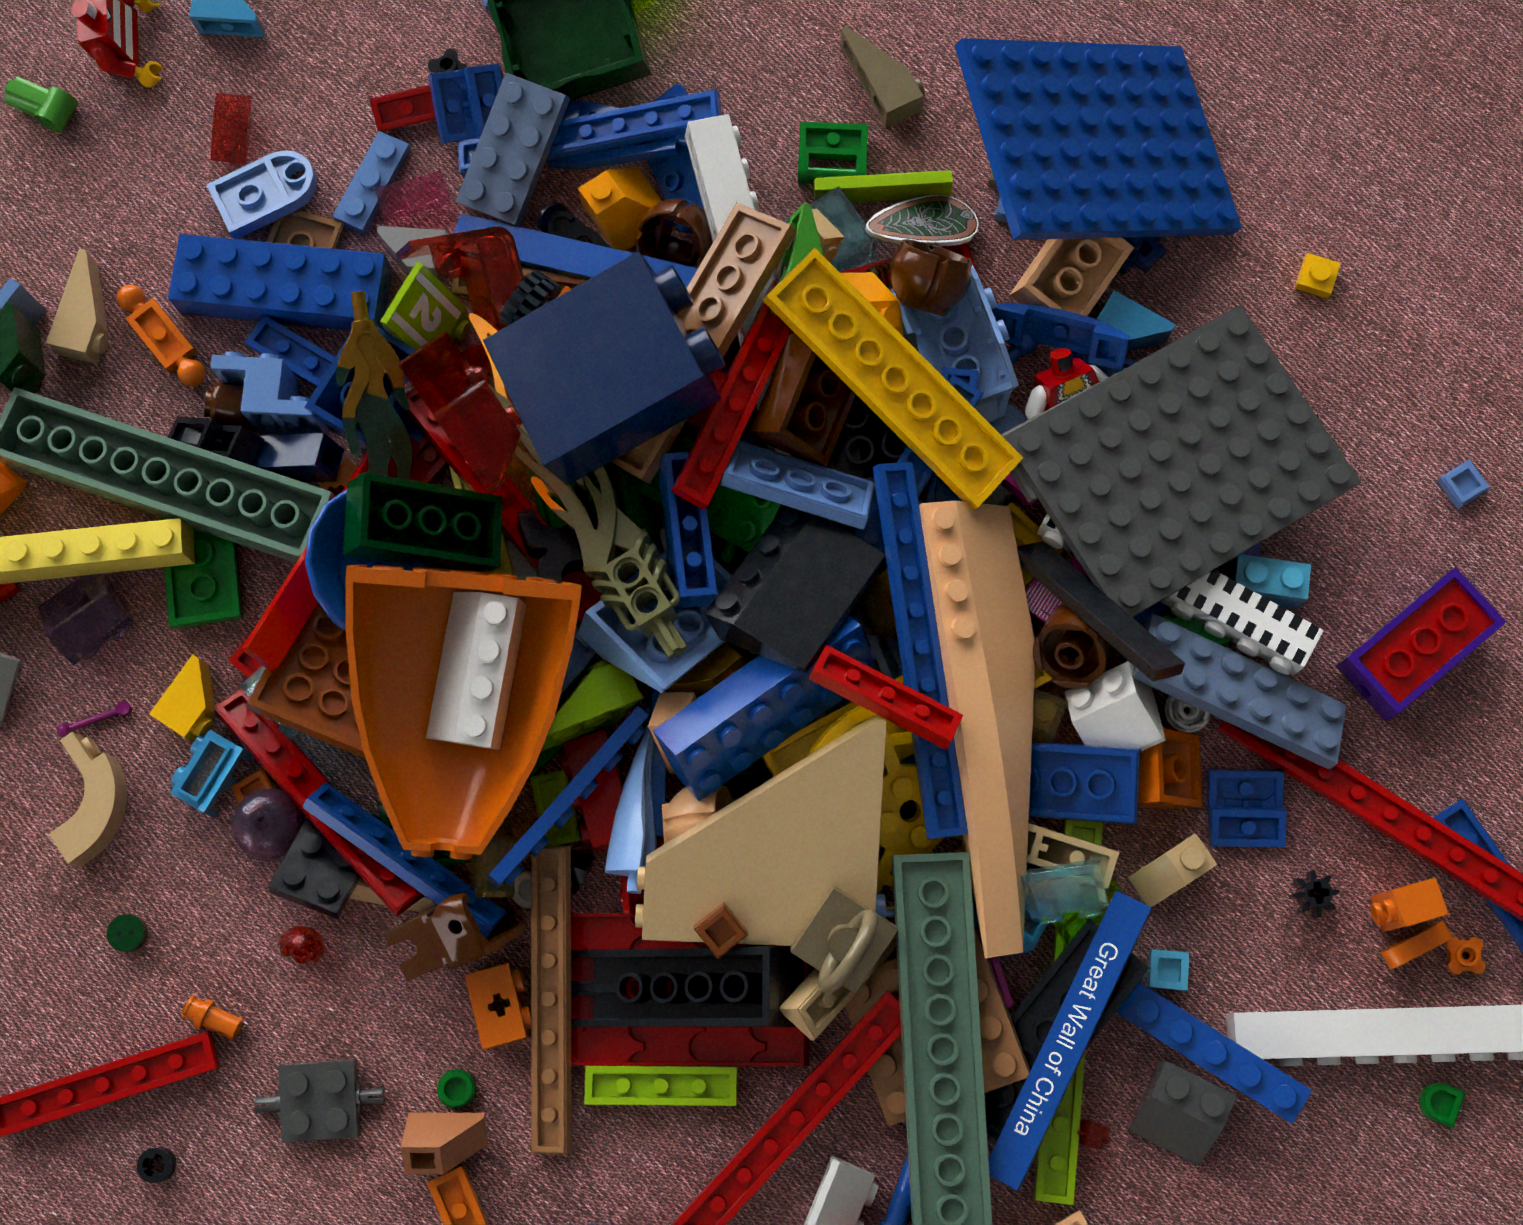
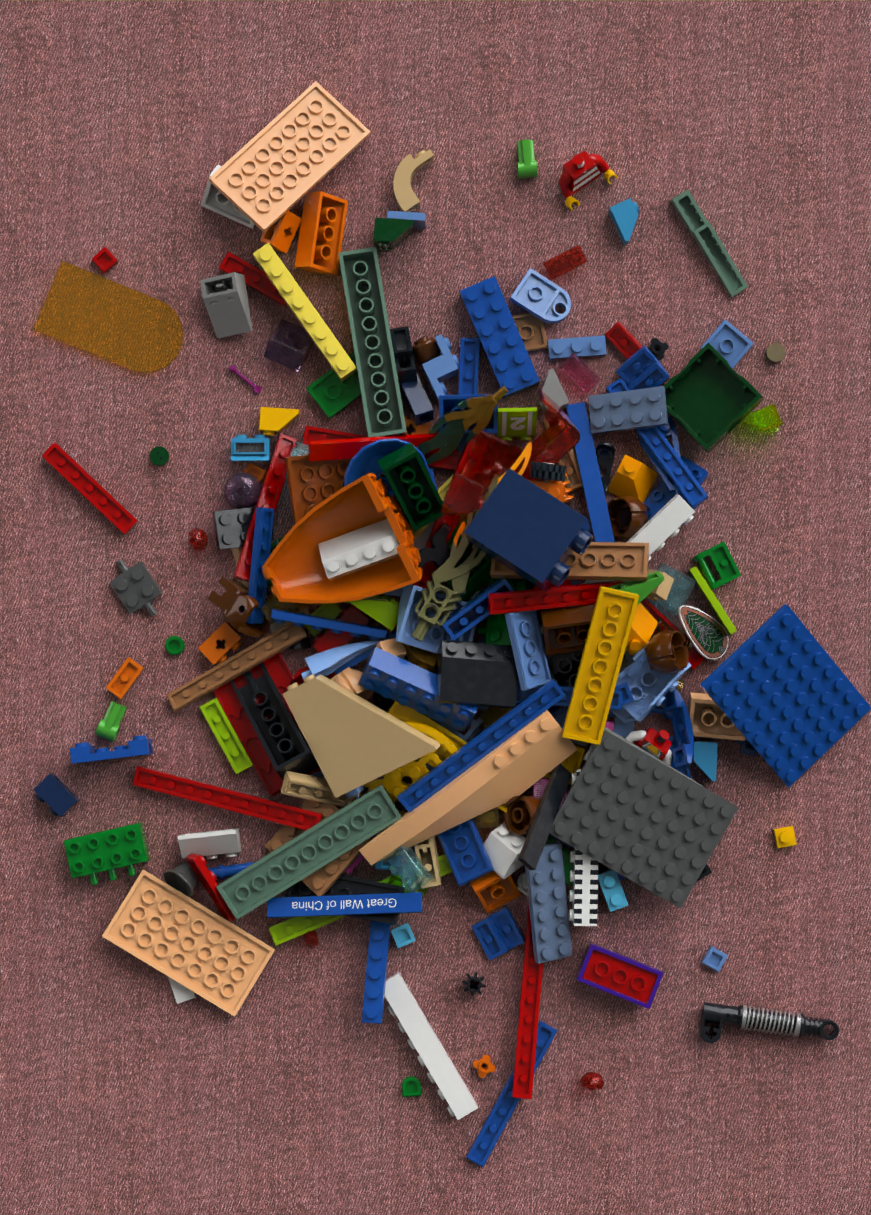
camera: 55 degrees right, 10 degrees up
(80, 321) = (429, 251): tan slope -> none
(102, 806) = (209, 409): tan arch -> none
(143, 1165) = (66, 537): black bush -> none
(161, 335) = (442, 294): orange plate -> none
(209, 1016) = (144, 518): orange pin -> none
(441, 1140) = (149, 653): nougat slope -> none
(720, 930) = (305, 726): dark orange tile -> none
(843, 941) = (330, 783): dark tan tile -> none
(883, 78) = (769, 571): dark tan slope -> none
(886, 697) = (447, 743): red plate -> none
(1172, 870) = (449, 913): tan slope -> none
(1182, 1112) = (342, 973): dark grey slope -> none
(1408, 905) = (490, 1027): orange brick -> none
(1416, 944) = (476, 1041): orange beam -> none

